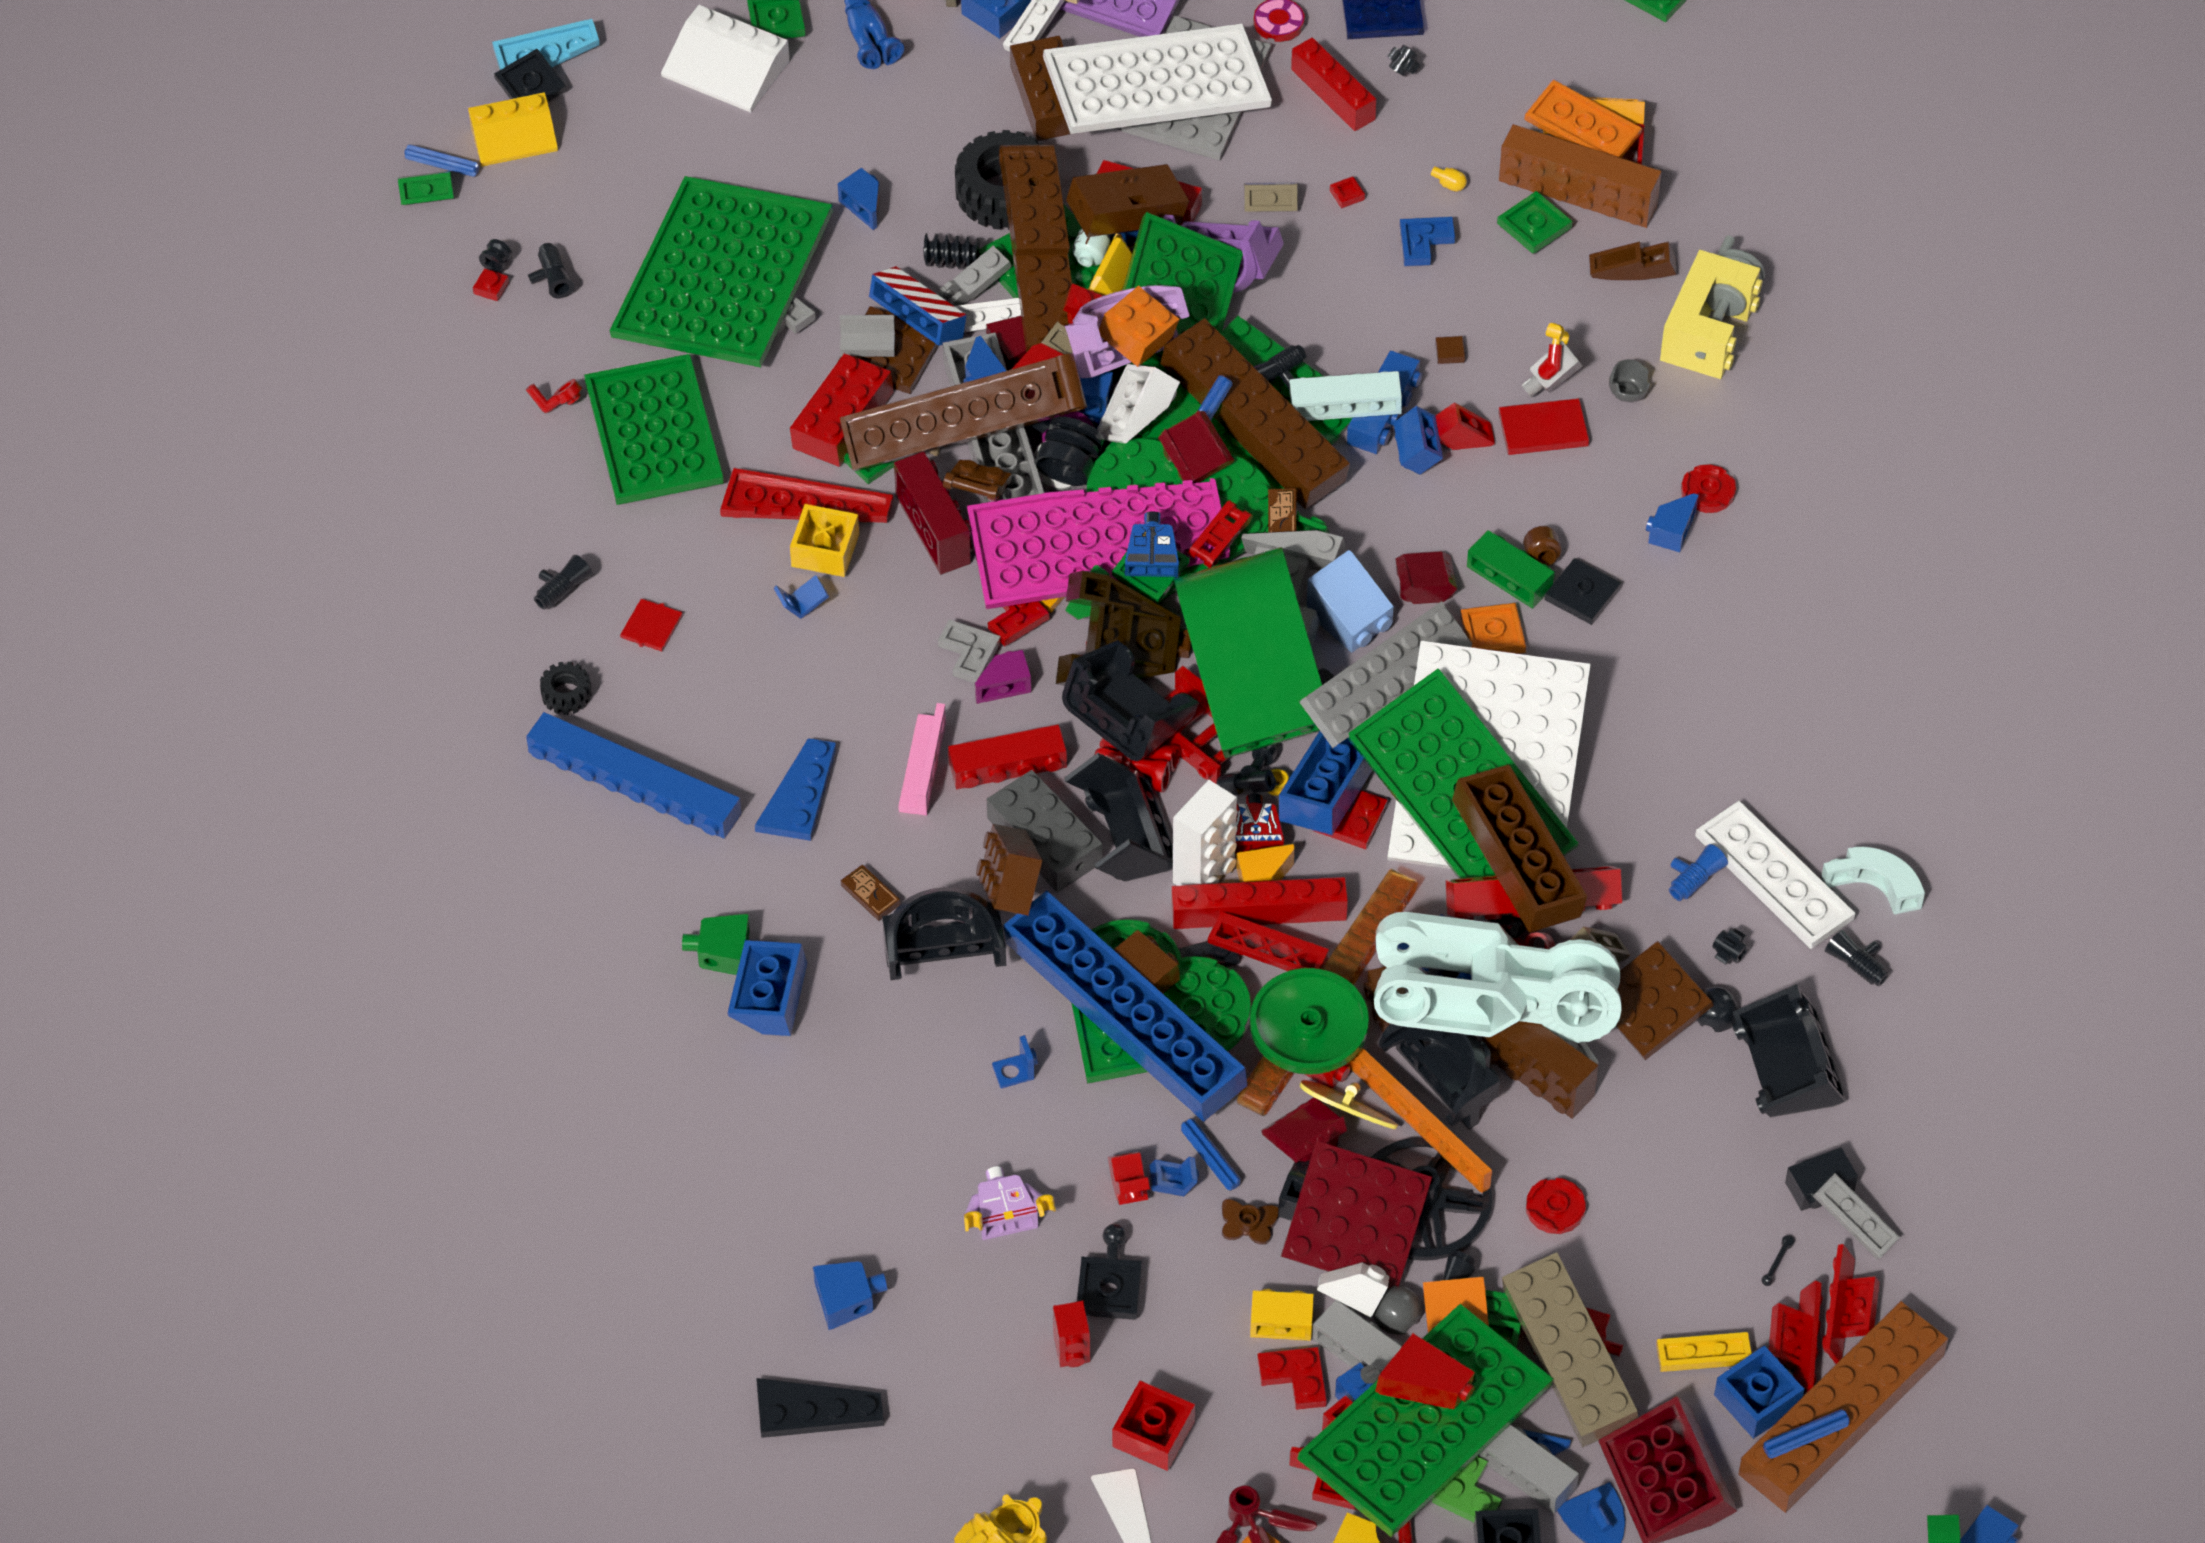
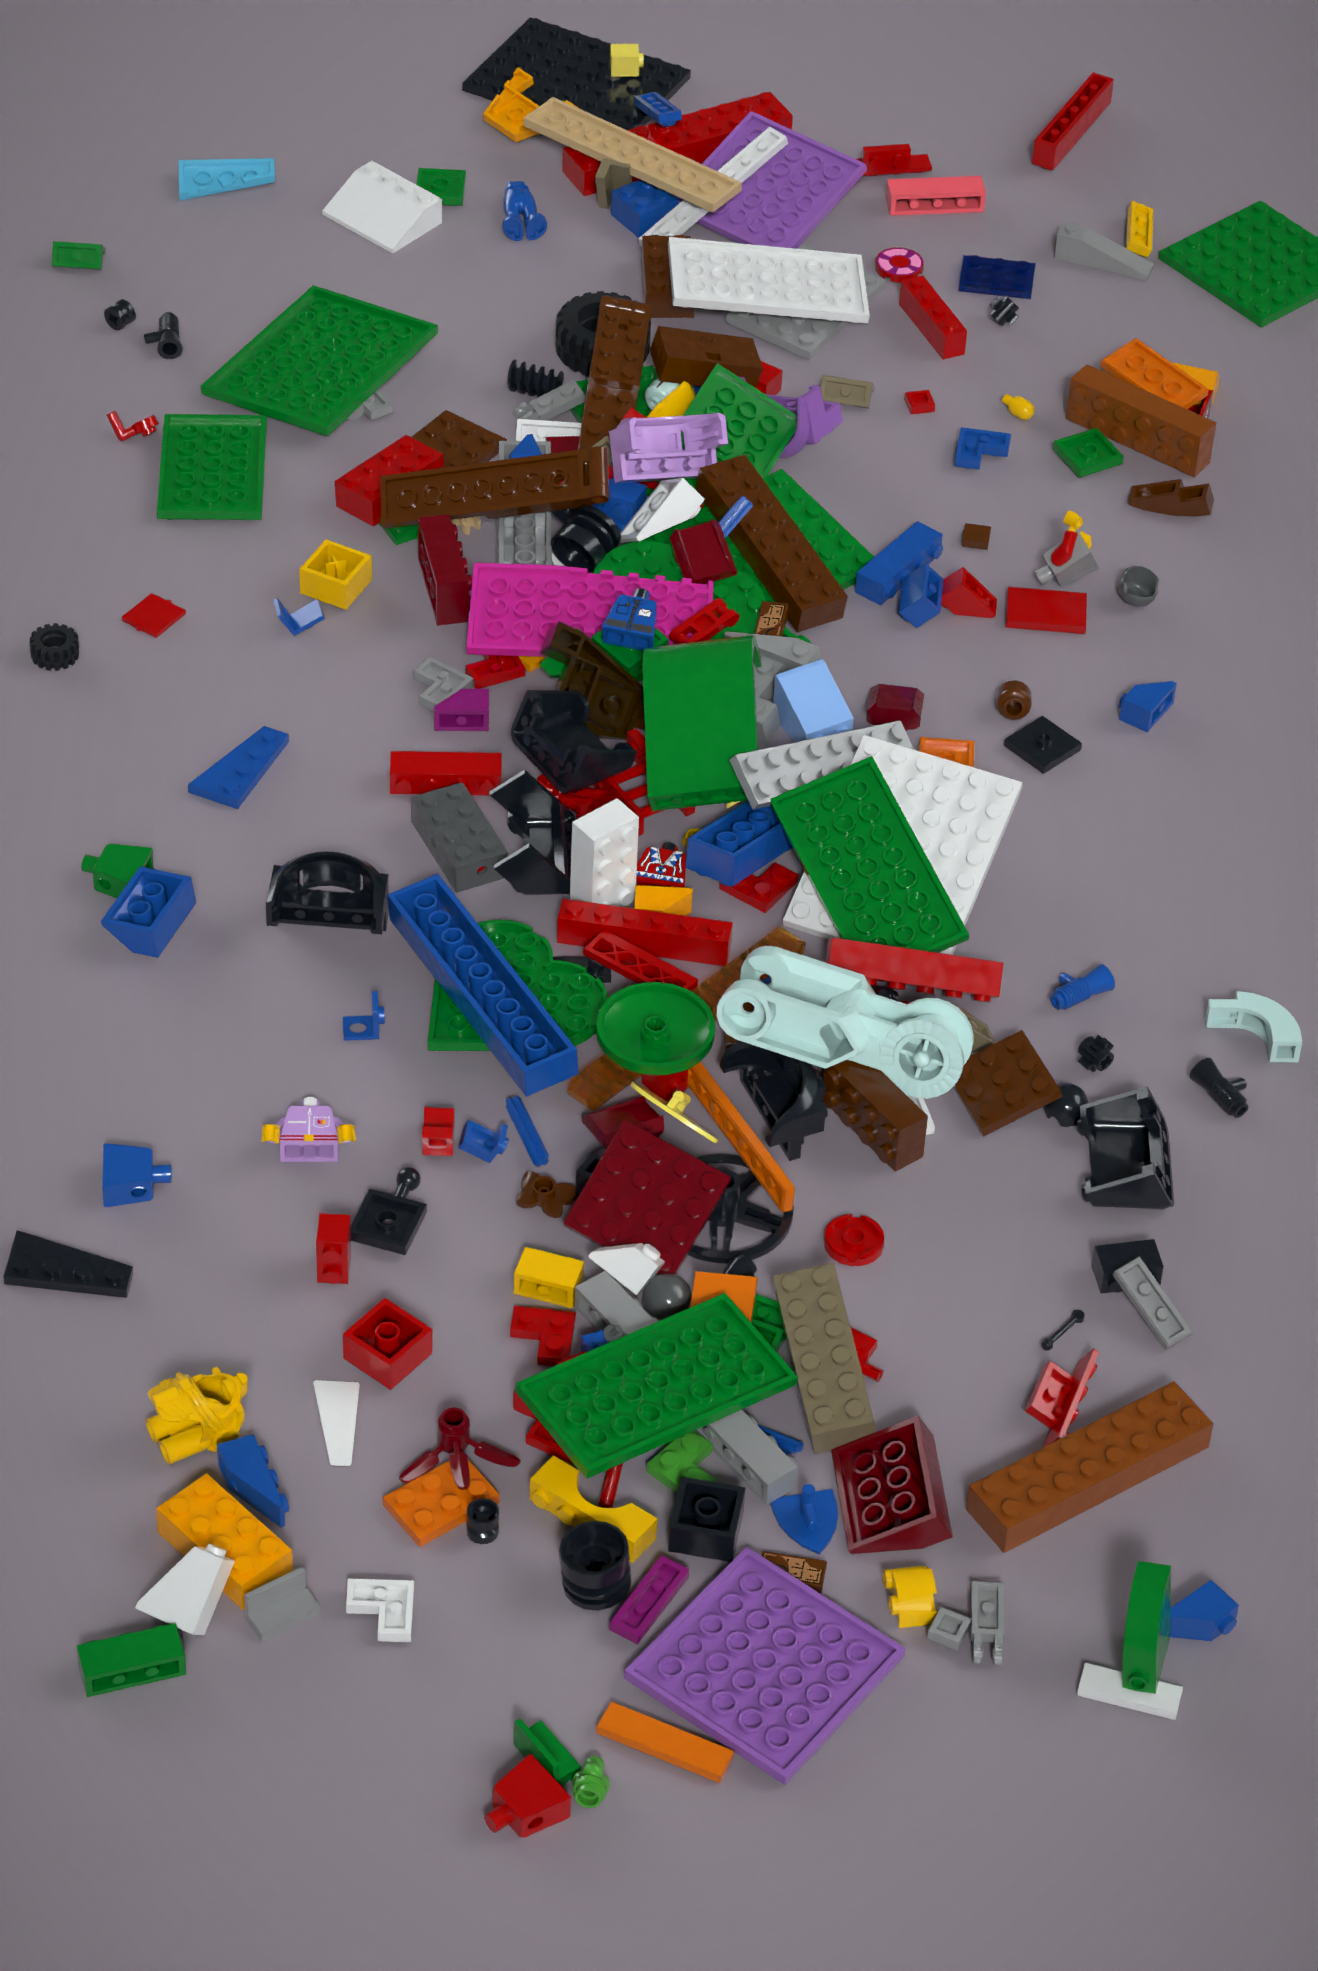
camera: 10 degrees right, 10 degrees down
(441, 160) = (95, 237): axle -> none
(490, 285) = (108, 337): red plate -> none
(512, 129) = (172, 225): yellow slope -> none
(529, 77) = (201, 195): black tile -> none
(561, 583) = (82, 566): black piece -> none
(634, 775) = (90, 724): blue brick -> none
(781, 497) = (302, 536): red wing -> none
(861, 196) = (468, 327): blue slope -> none
(867, 335) = (433, 424): light grey panel -> none
(870, 892) = (272, 852): tile -> none
(917, 305) = (486, 411): brick -> none
(923, 762) = (366, 764): bright pink fence -> none
(978, 479) = (486, 541): reddish brown plate -> none
(1009, 869) = (408, 849): reddish brown brick -> none
(1138, 326) = (677, 442): orange brick -> none
(1150, 961) = (519, 951): reddish brown brick -> none
(1251, 775) = (672, 829): black bar -> none
(1282, 364) = (810, 510): black piece -> none
(1346, 395) = (863, 544): light aqua brick -> none
(1425, 1376) = (665, 1341): red slope -> none
(1510, 568) = (977, 712): green brick -> none
(1519, 848) = (905, 918): reddish brown brick -> none
(1702, 1351) = (962, 1392): yellow plate -> none
(1712, 485) = (1194, 685): red tile -> none
(1715, 283) = (1218, 547): light yellow piece -> none
(1758, 1391) = (1003, 1431): blue brick -> none
(1776, 875) = (1160, 1004): white plate -> none
(1806, 1433) = (1040, 1474): blue axle -> none
(1851, 1305) = (1123, 1377): red bracket -> none

